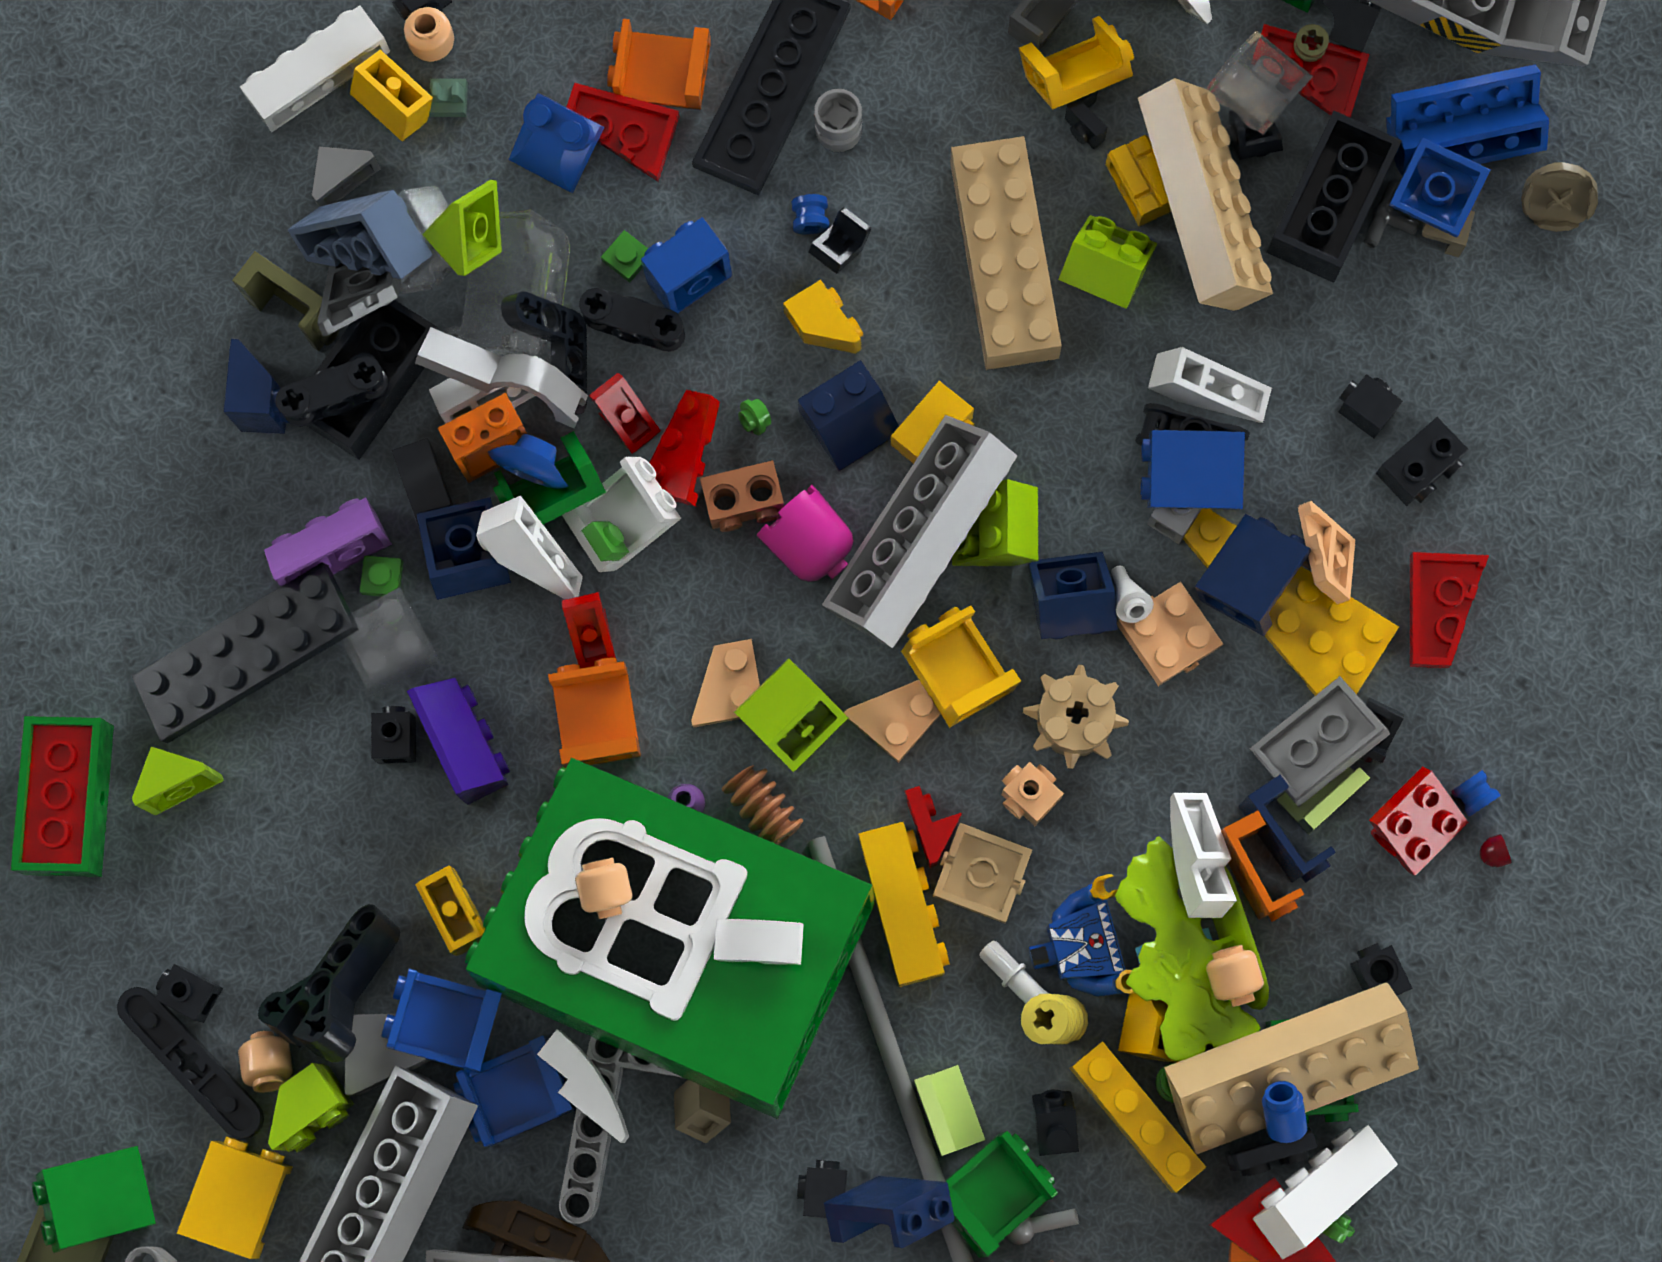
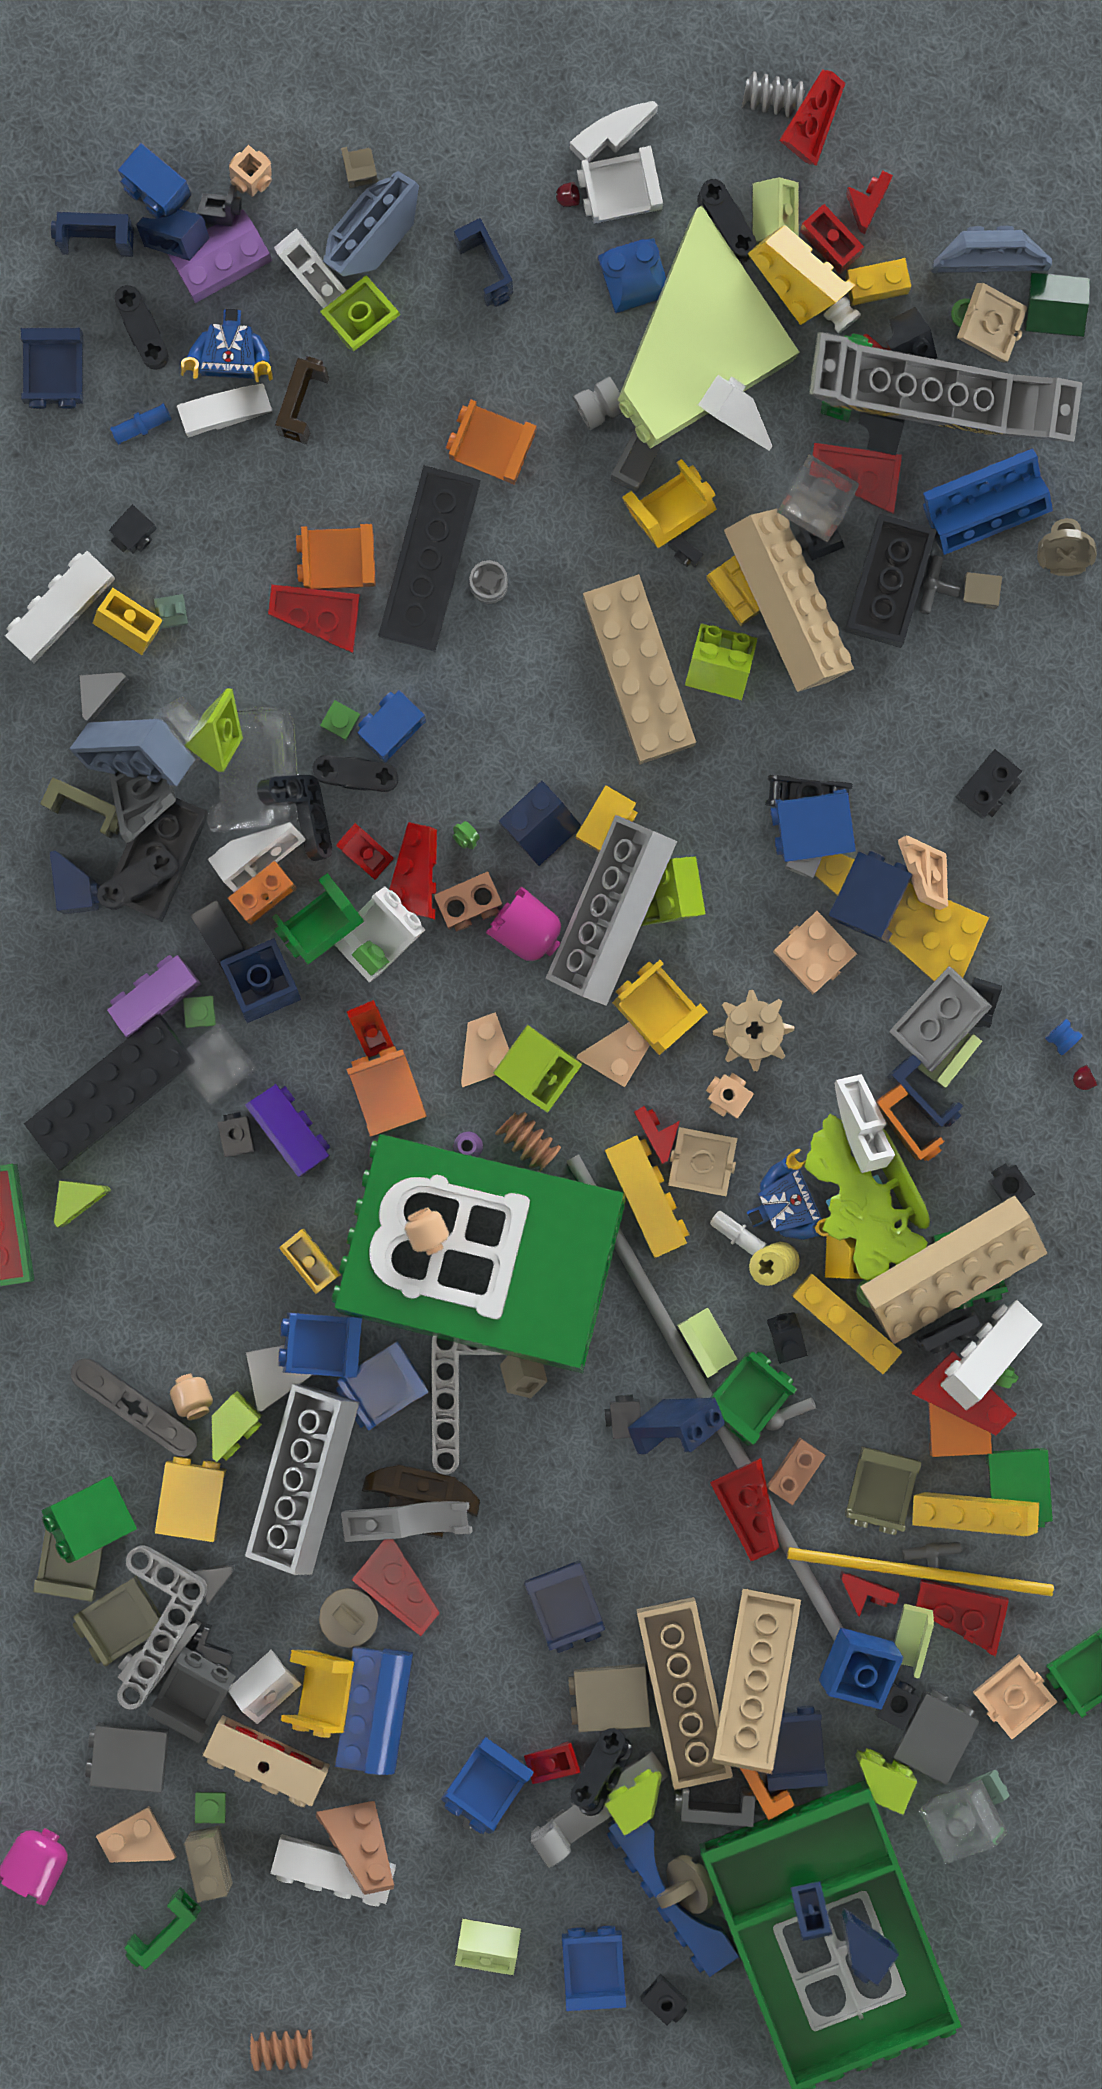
camera: 15 degrees left, 10 degrees up
(187, 992) = (121, 1356): black brick -> none
(323, 1004) = (227, 1348): black beam -> none
(429, 34) = (139, 556): light nougat head -> none
(489, 371) = (259, 842): light grey piece -> none
(526, 547) = (312, 976): white slope -> none
(530, 460) = (302, 906): blue hat -> none
(555, 142) = (266, 636): blue slope -> none
(584, 1085) = (437, 1374): white slope -> none
(758, 941) = (548, 1251): white slope -> none
(810, 214) = (480, 662): blue wheel -> none
(820, 321) = (503, 749): yellow slope -> none
(841, 241) = (508, 681): black bracket -> none
(1073, 595) = (736, 935): dark blue slope -> none
(1131, 600) = (782, 935): white cone -> none
(1208, 385) = (815, 750): white slope -> none
(1235, 975) = (902, 1209): light nougat head -> none
(1284, 1112) = (952, 1305): blue brick -> none
(1302, 49) = (859, 448): olive bush -> none
(1369, 404) = (941, 744): black brick -> none
(1417, 821) = (1023, 1066): plate -> none
(1439, 187) = (970, 566): blue slope -> none
(1439, 604) = (1017, 894): red wing -> none

